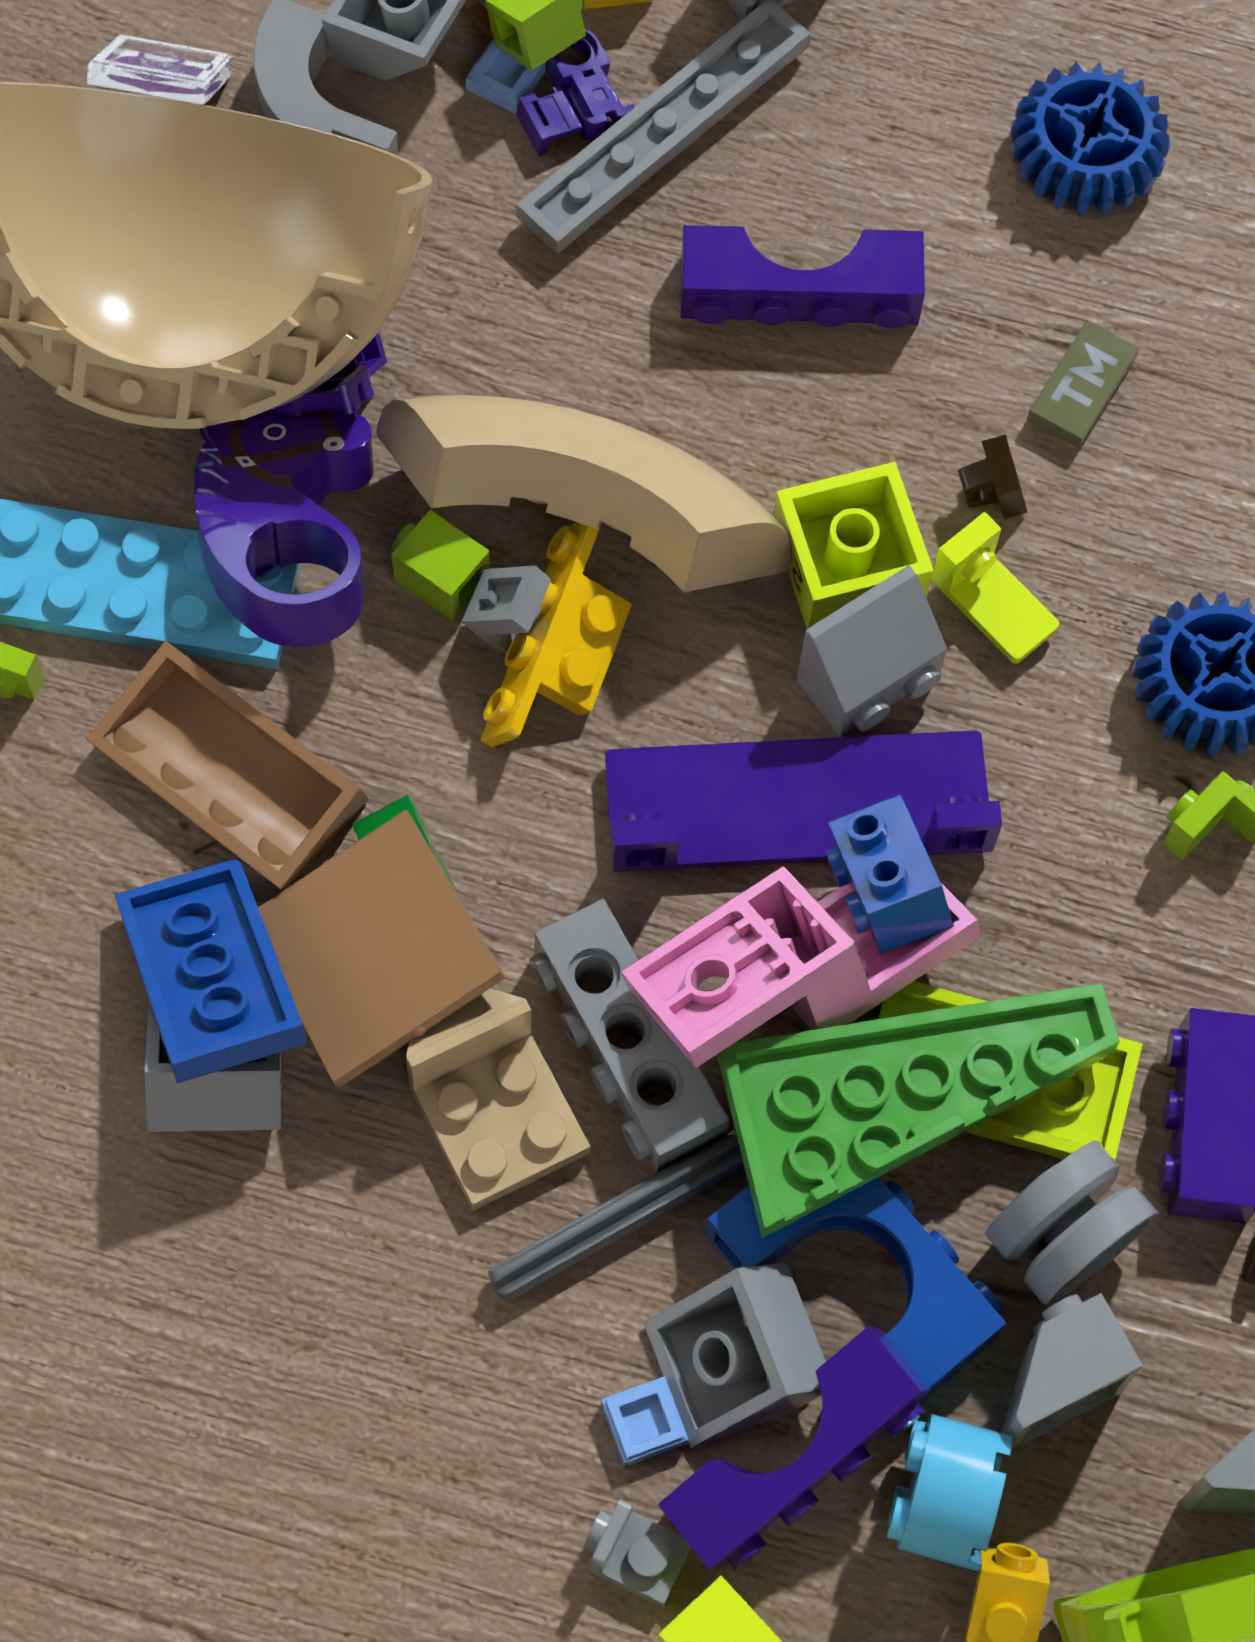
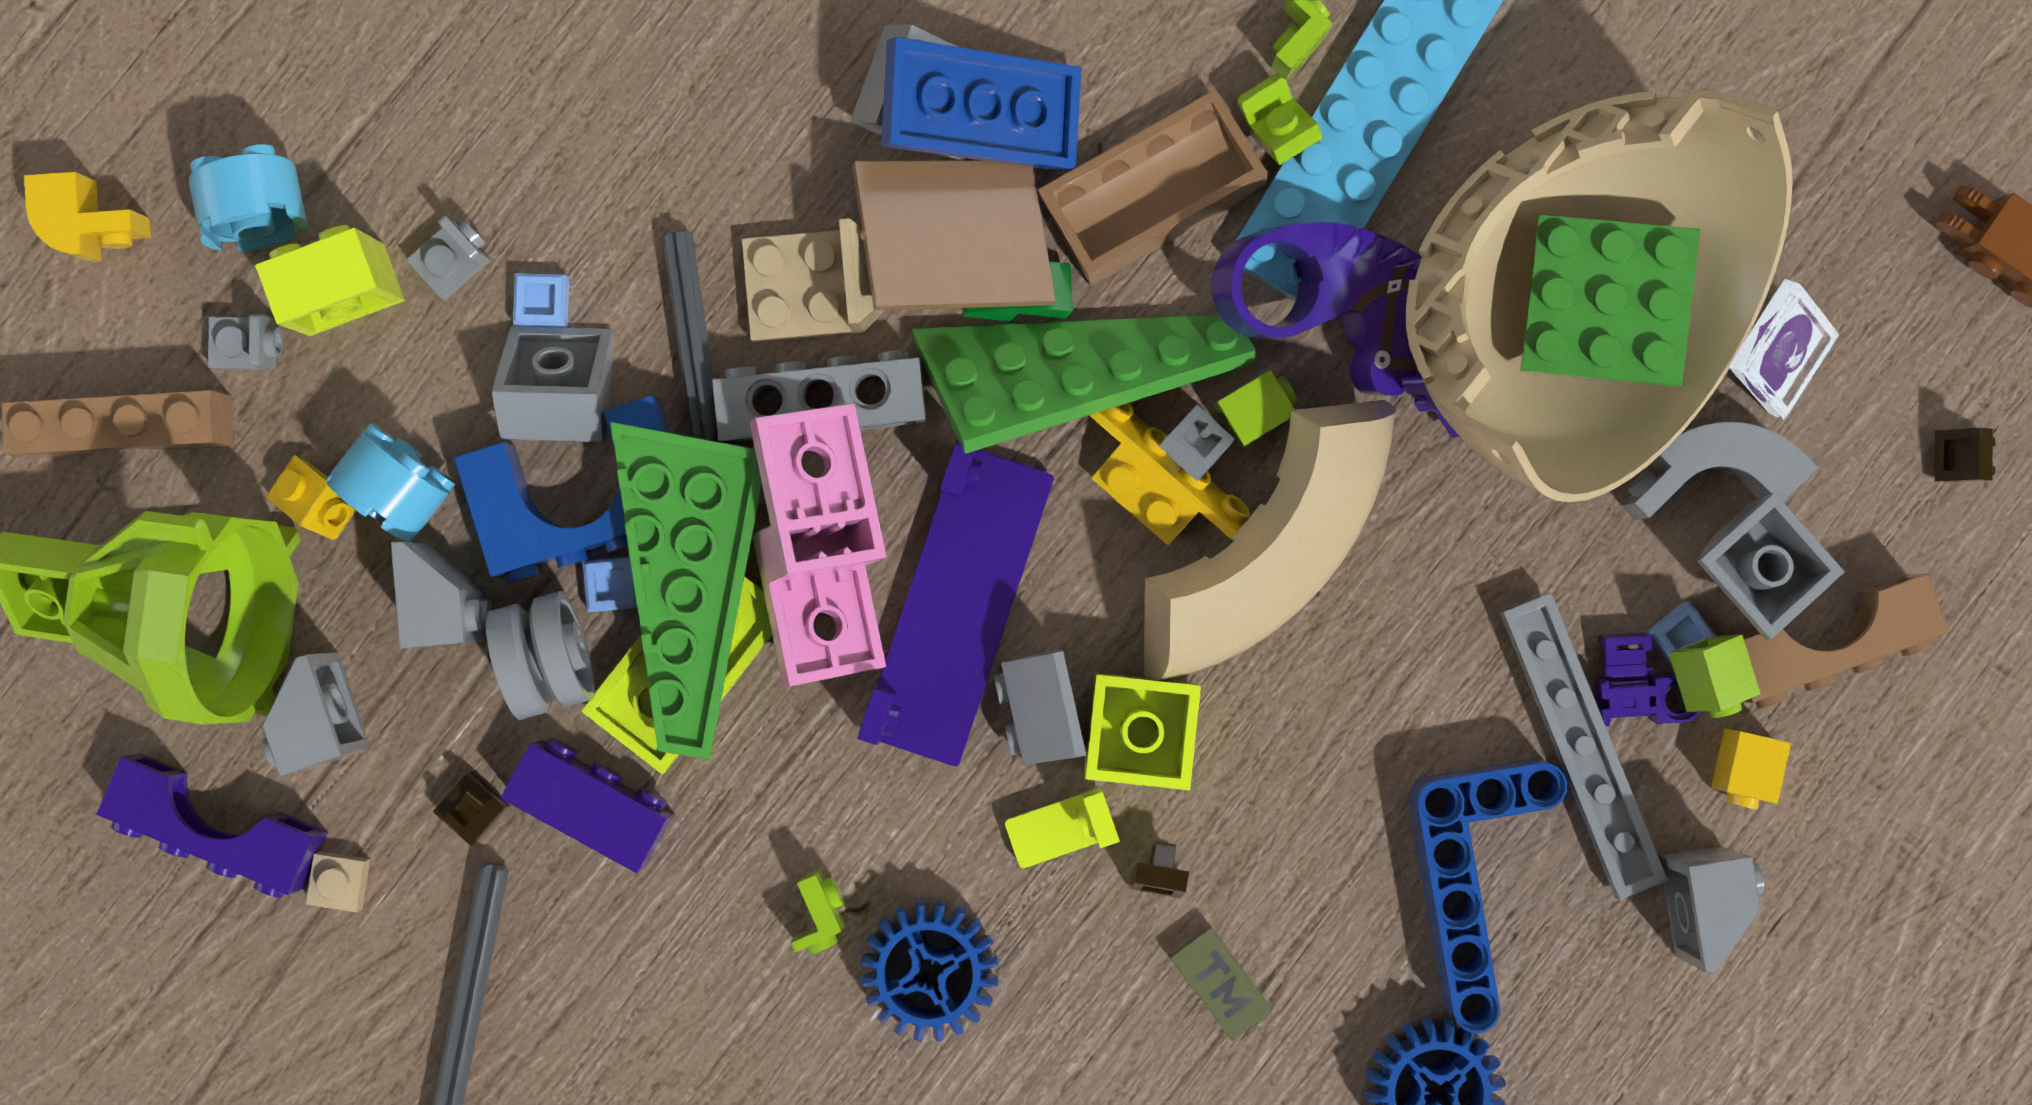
camera: 120 degrees right, 20 degrees up
(99, 655) = (1278, 119): none -> lime bracket
(177, 242) = (1610, 300): none -> bright green plate
(495, 792) = (1040, 375): none -> bright green wing
(733, 281) = (1419, 736): dark purple arch -> none
(854, 187) = (1461, 872): none -> blue beam
(862, 1392) = (448, 331): dark purple arch -> none
(890, 875) = (853, 635): blue brick -> none
(949, 1198) = (609, 585): none -> light blue tile

